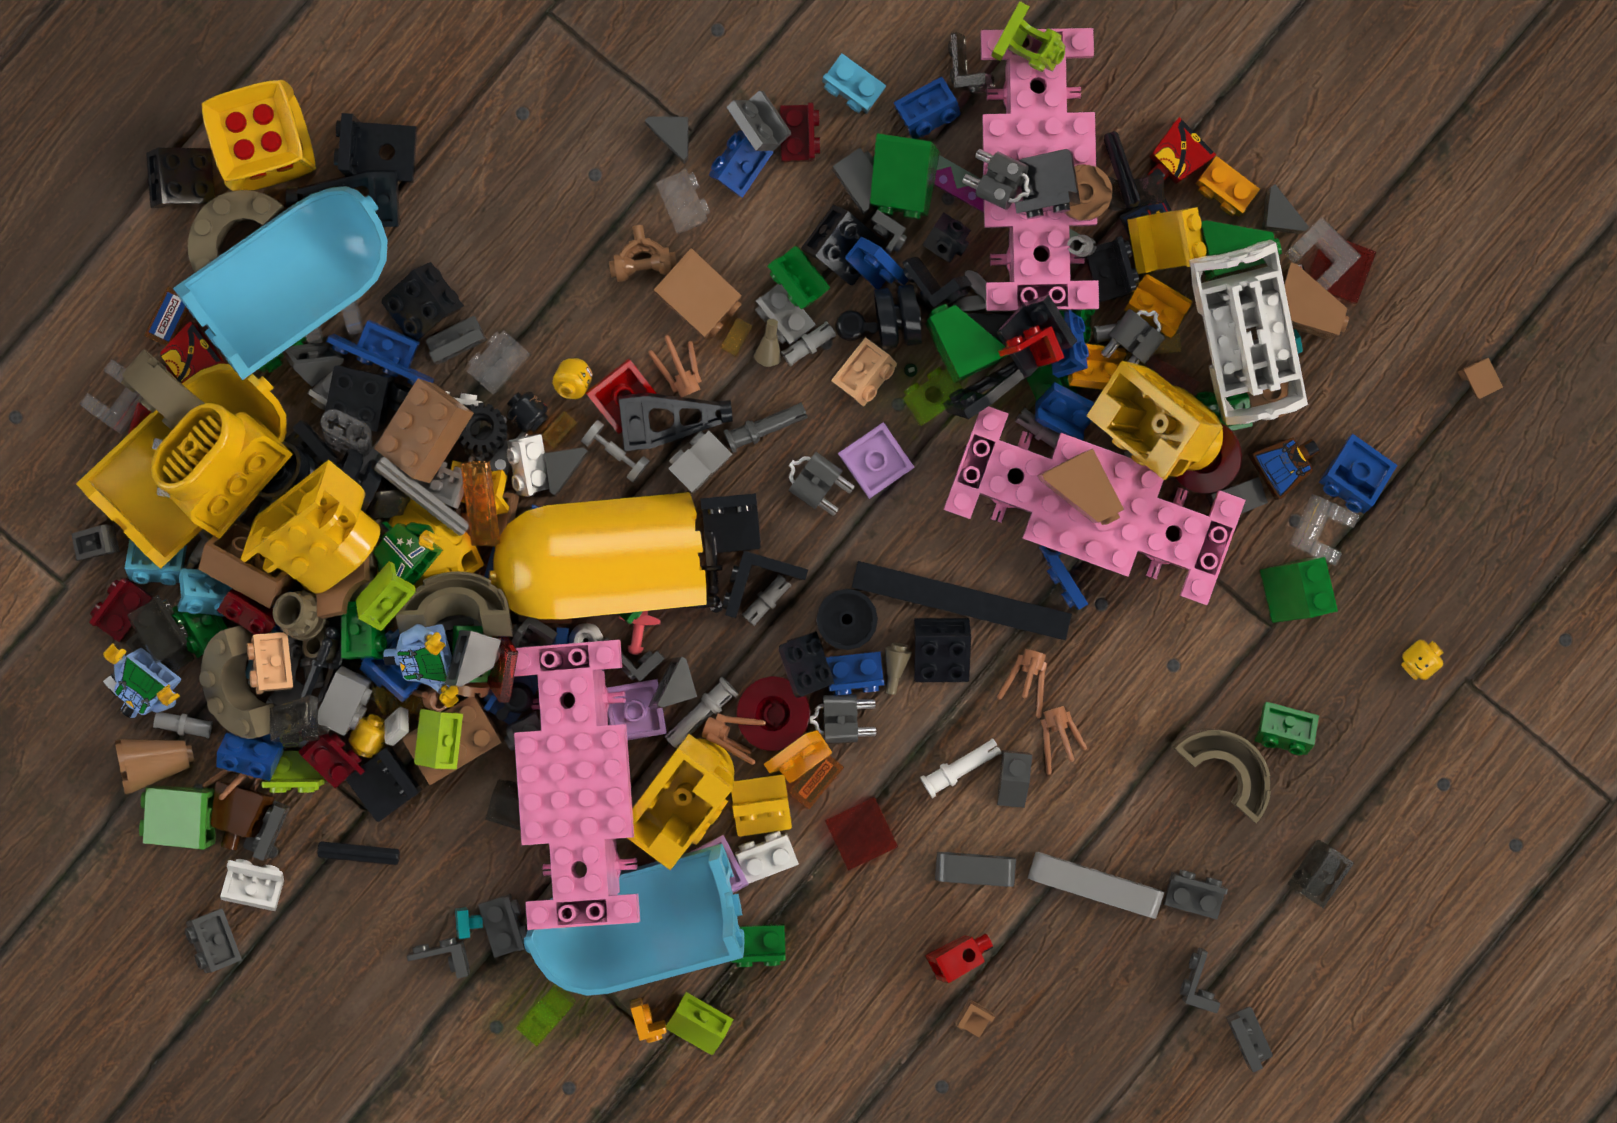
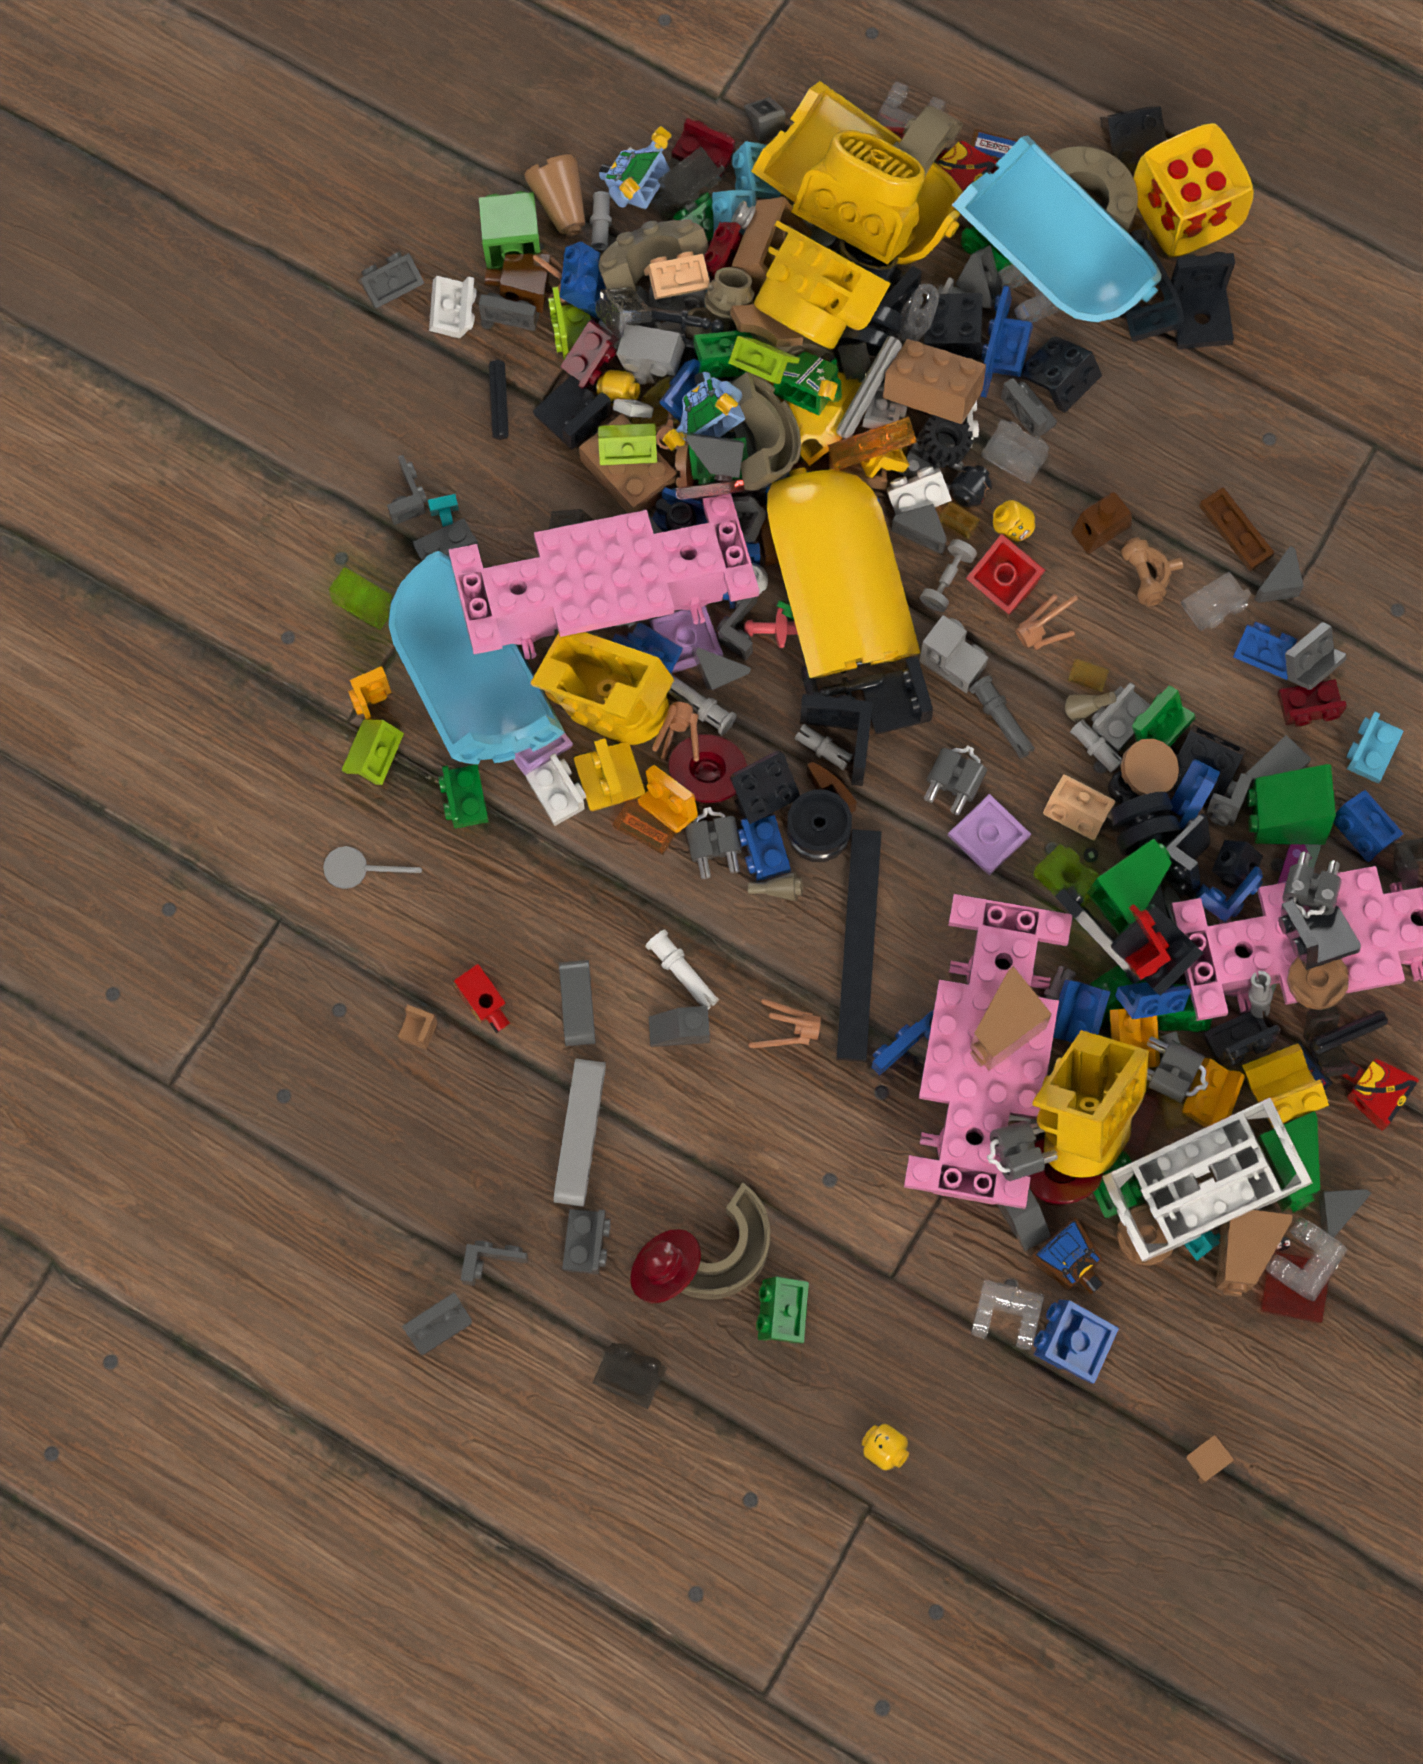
camera: 85 degrees right, 15 degrees down
(213, 586) = (743, 214): none -> light grey bush
(588, 294) = (1105, 519): none -> reddish brown torso
(613, 166) = (1236, 529): none -> reddish brown plate
(636, 425) = (981, 589): black plate -> none
(647, 749) = (652, 643): none -> blue bracket
(698, 294) = (1125, 625): medium nougat slope -> none
(803, 605) = (824, 780): none -> reddish brown slope
(807, 1061) = (347, 867): none -> light grey piece
(843, 300) = (1149, 767): none -> medium nougat tile
(861, 833) = (596, 882): clear red tile -> none
(942, 649) = (803, 930): black bracket -> none
(989, 261) = (1215, 900): none -> blue bracket
(1057, 719) = (748, 1061): nougat plant -> none
(1198, 498) = (1017, 1150): none -> dark grey piece
(1227, 187) = (1355, 1150): light orange bracket -> none
(1234, 828) = (665, 1266): none -> dark red hat
(1298, 589) = (938, 1293): green slope -> none

